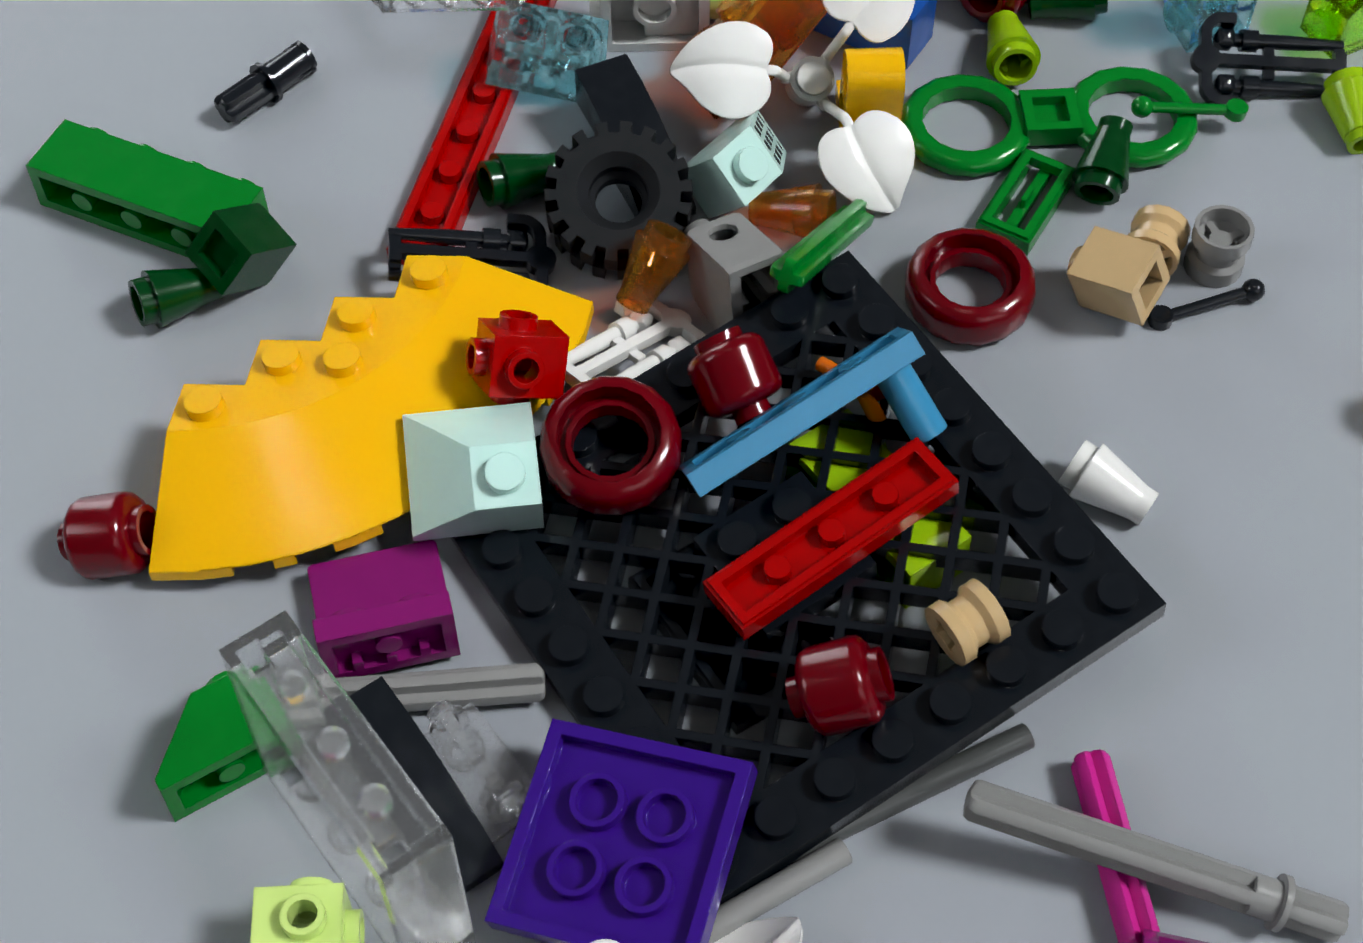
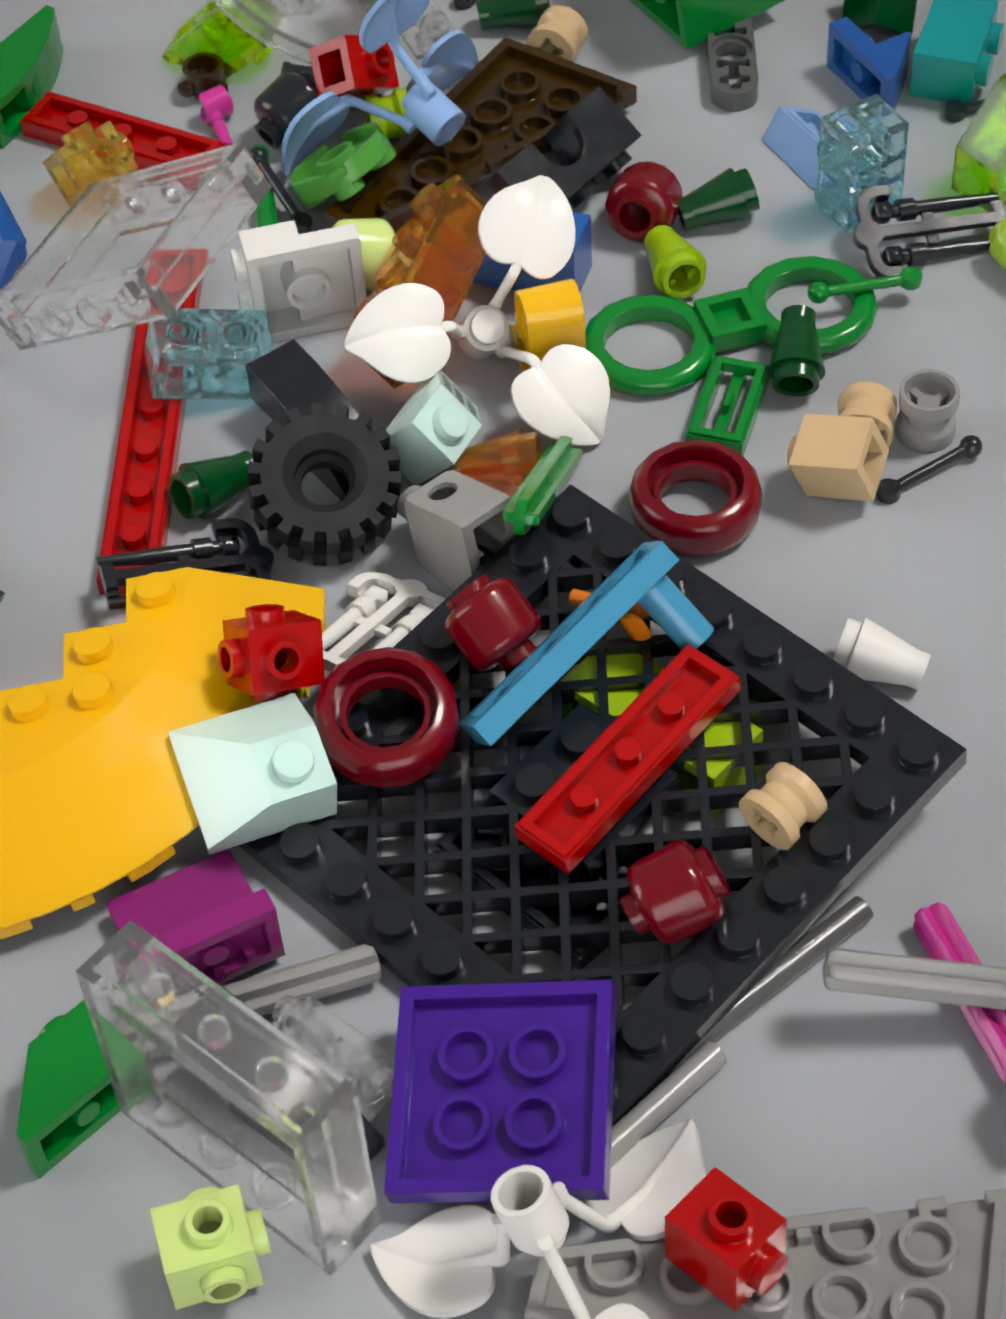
camera: 10 degrees left, 5 degrees down
(653, 263) = (377, 538): clear orange cone -> none

